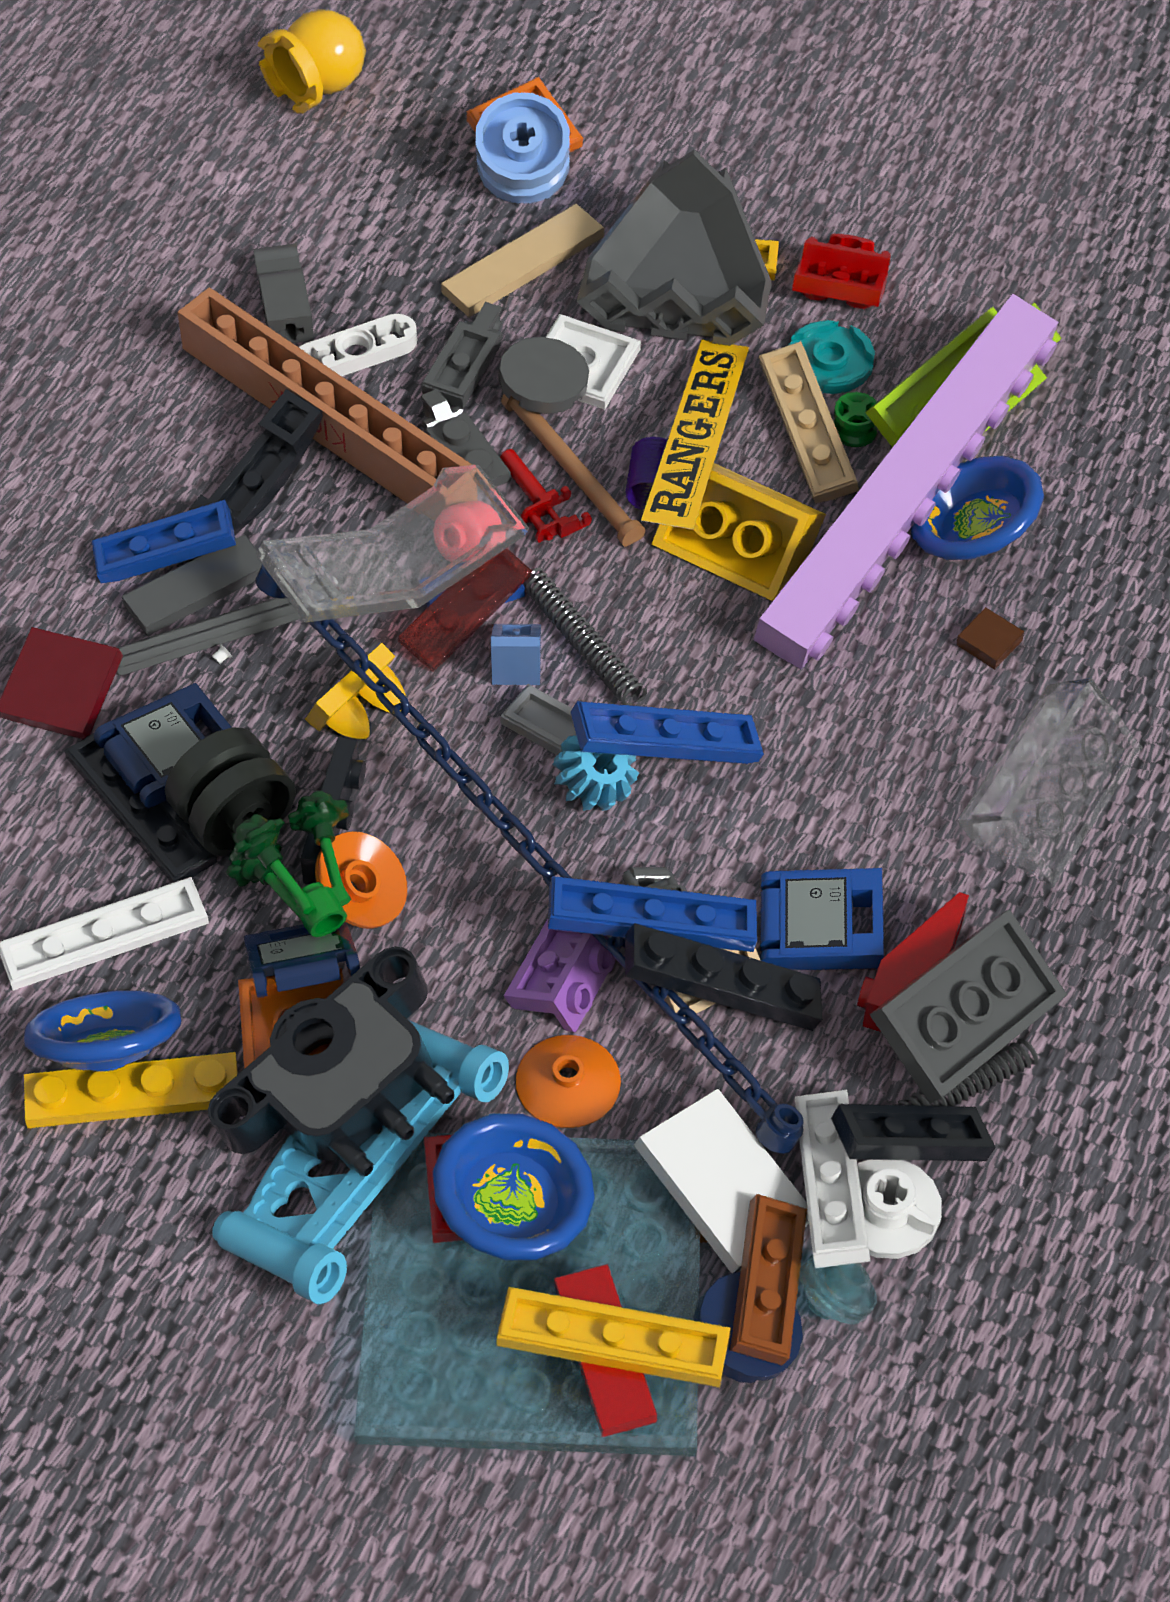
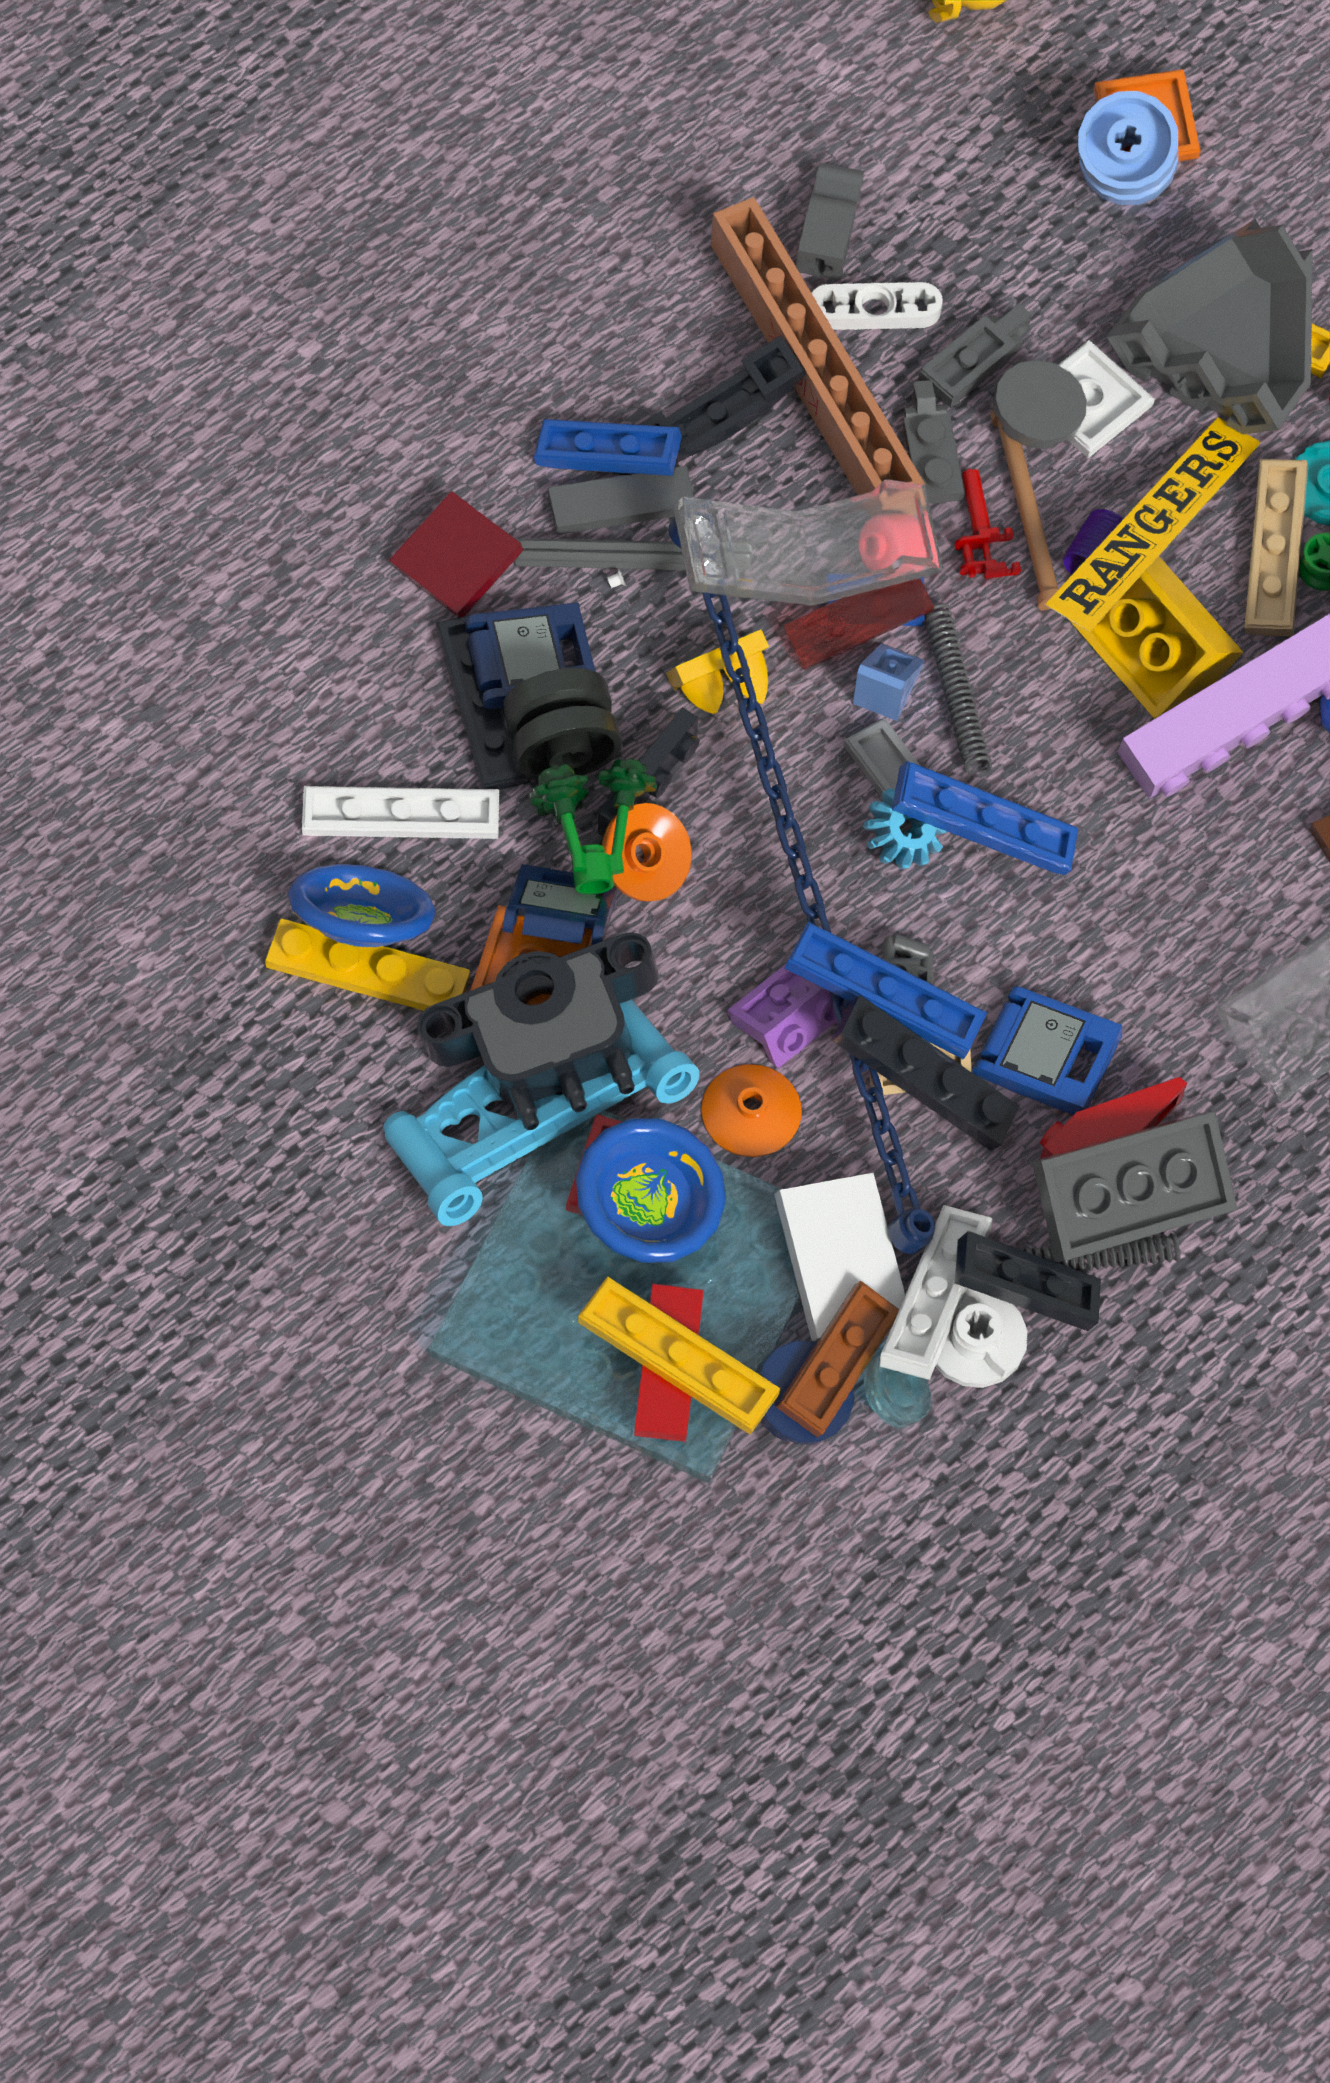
camera: 20 degrees right, 10 degrees up
(522, 260) = (1080, 266): tan tile -> none

